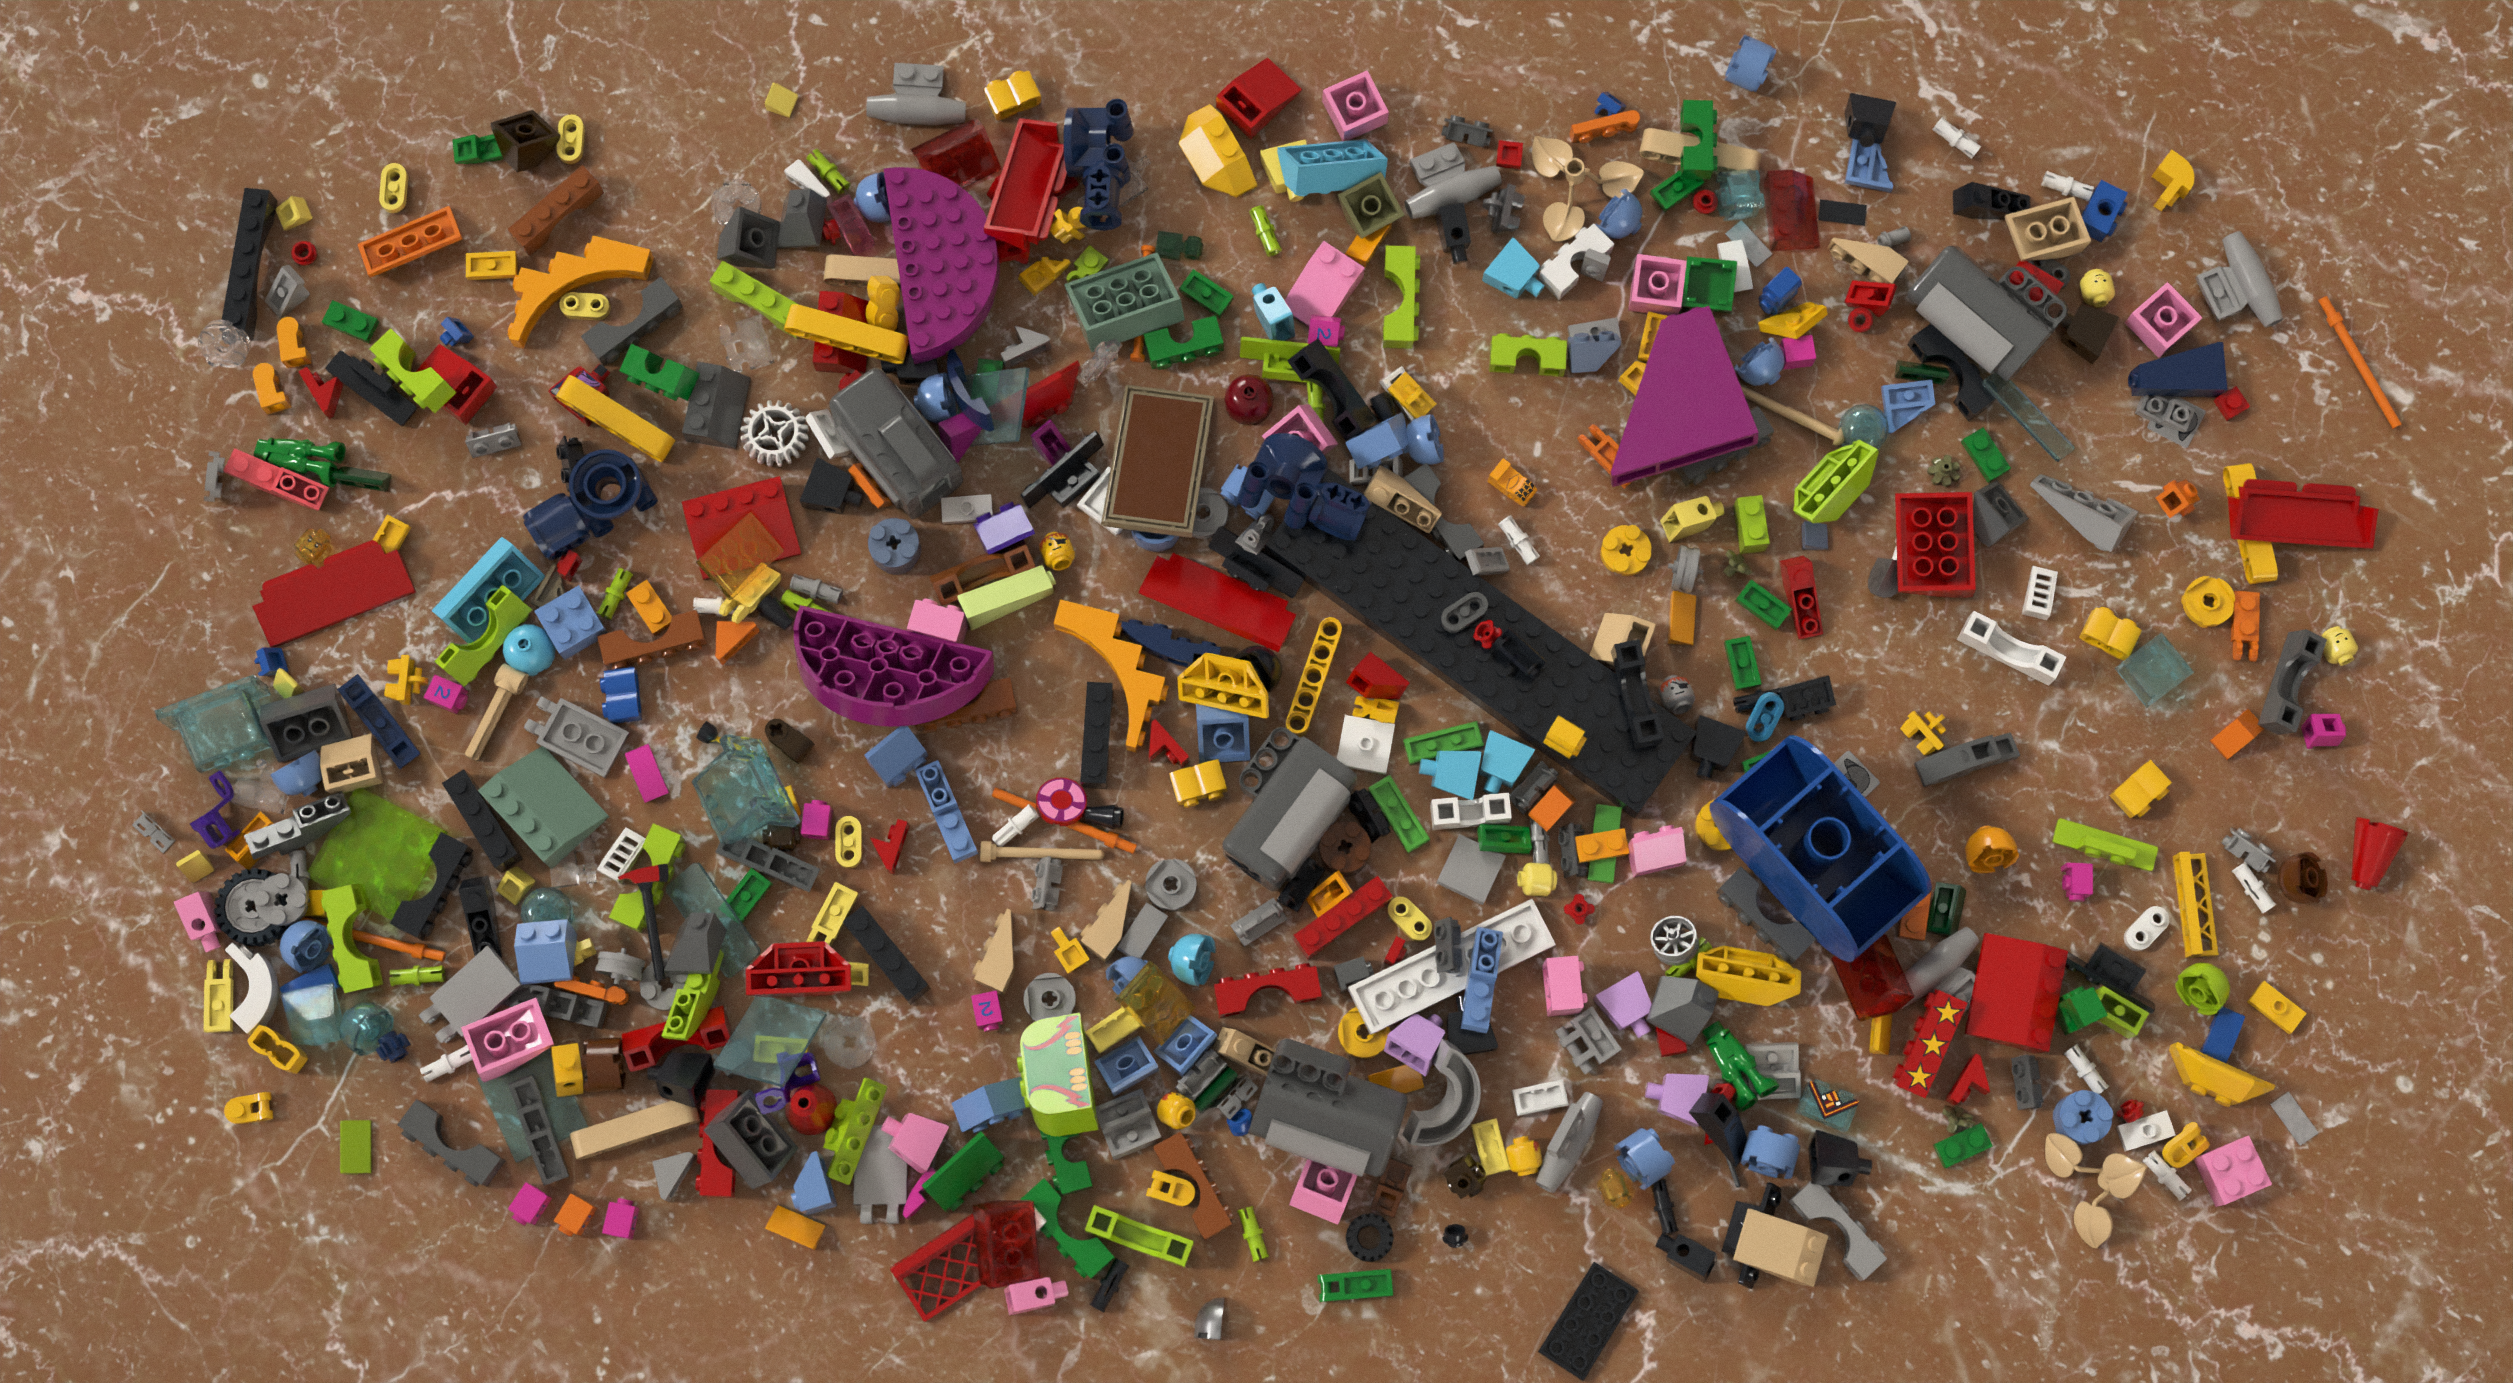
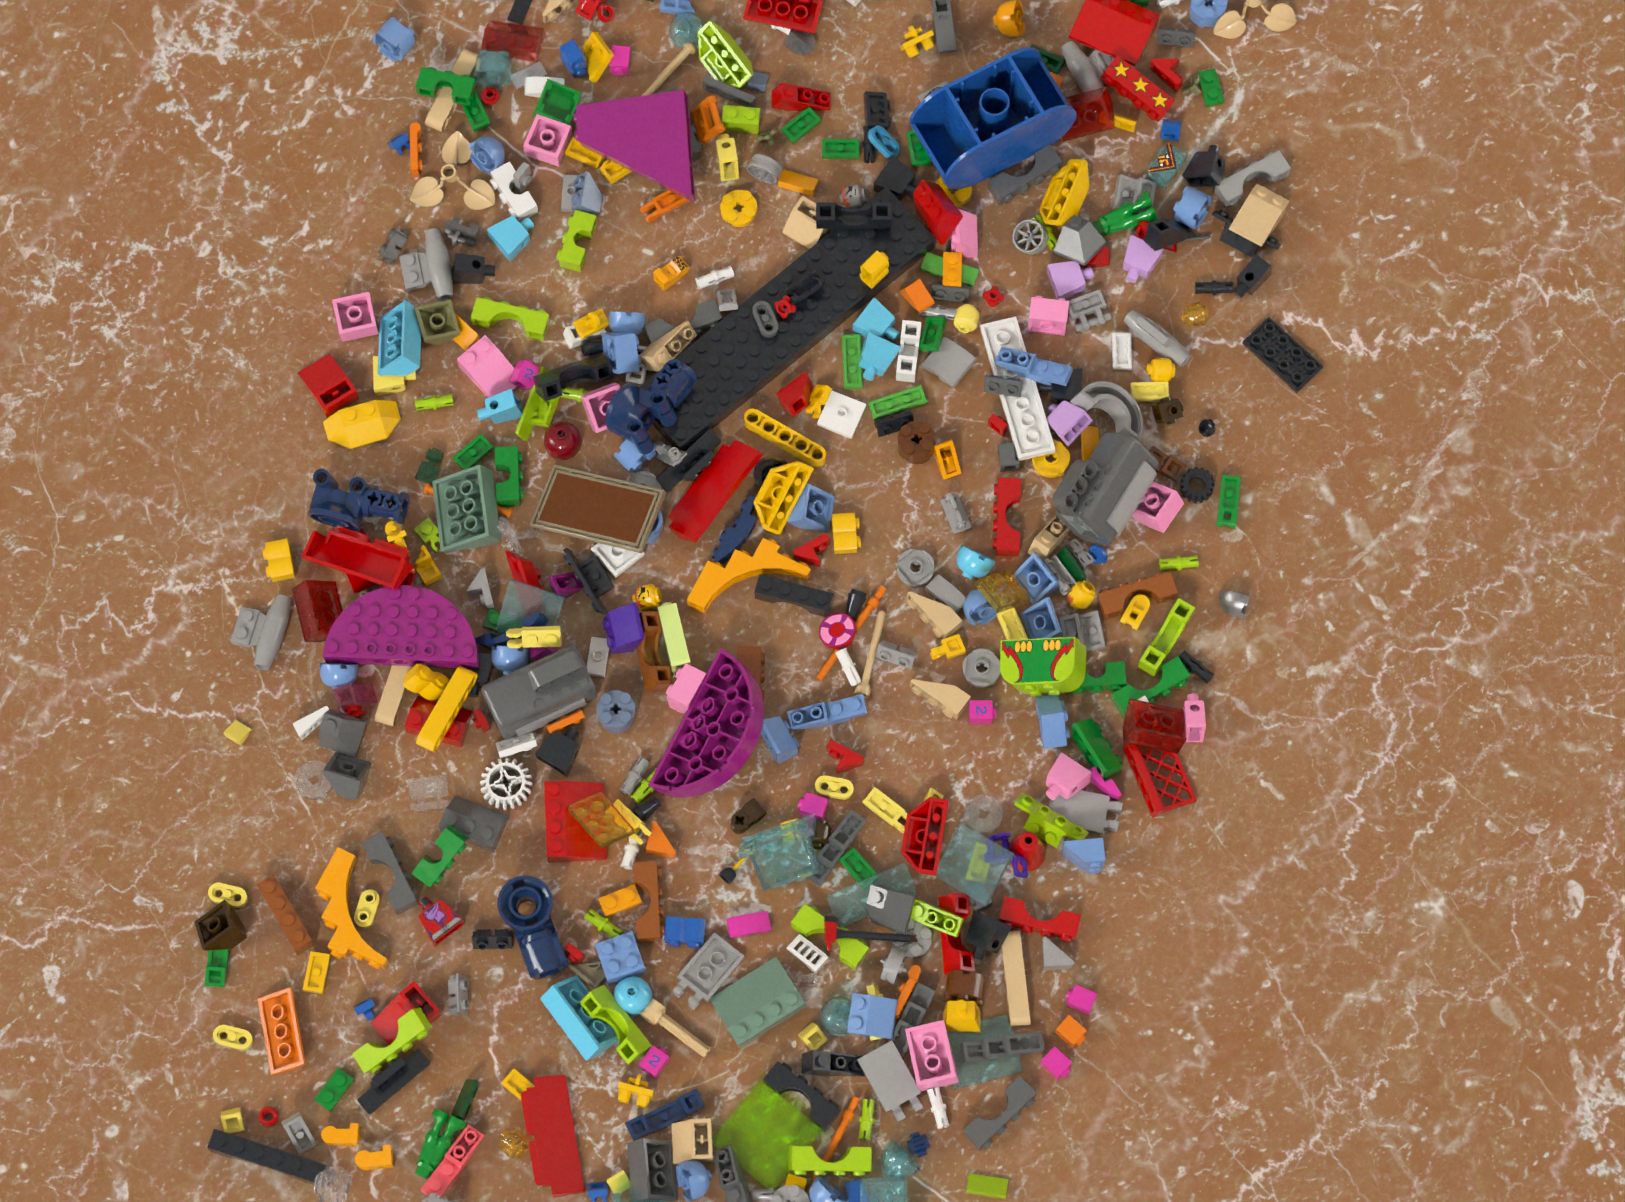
camera: 75 degrees left, 5 degrees down
(326, 393) = (393, 1117): red slope -> none
(482, 821) = (759, 1048): black arch -> none
(615, 418) = (468, 895): yellow beam -> none
(744, 289) = (384, 786): lime arch -> none
(751, 1140) = (1043, 892): dark grey slope -> none
(795, 1227) = (1111, 877): light orange slope -> none
(828, 171) = (305, 707): lime pin -> none
(886, 955) = (917, 777): black arch -> none
(959, 416) = (535, 637): none -> light yellow hinge
(1289, 808) = (882, 469): dark grey piece -> none
(1301, 886) = (934, 478): black hinge -> none
(1341, 917) = (971, 463): red arch -> none
(1409, 918) = (976, 411): light yellow plate -> none
(1509, 154) = (419, 220): red plate -> none
(1533, 787) = (901, 309): dark grey hinge -> none
(1644, 1157) = (1179, 290): medium blue brick -> none
(1677, 805) = (936, 210): none -> red slope
(1738, 480) = (703, 122): none -> orange plate
(1762, 364) = (622, 83): medium blue cylinder -> none
(1786, 501) = (728, 92): none -> dark grey tile
(1883, 1101) = (1170, 130): none -> blue tile

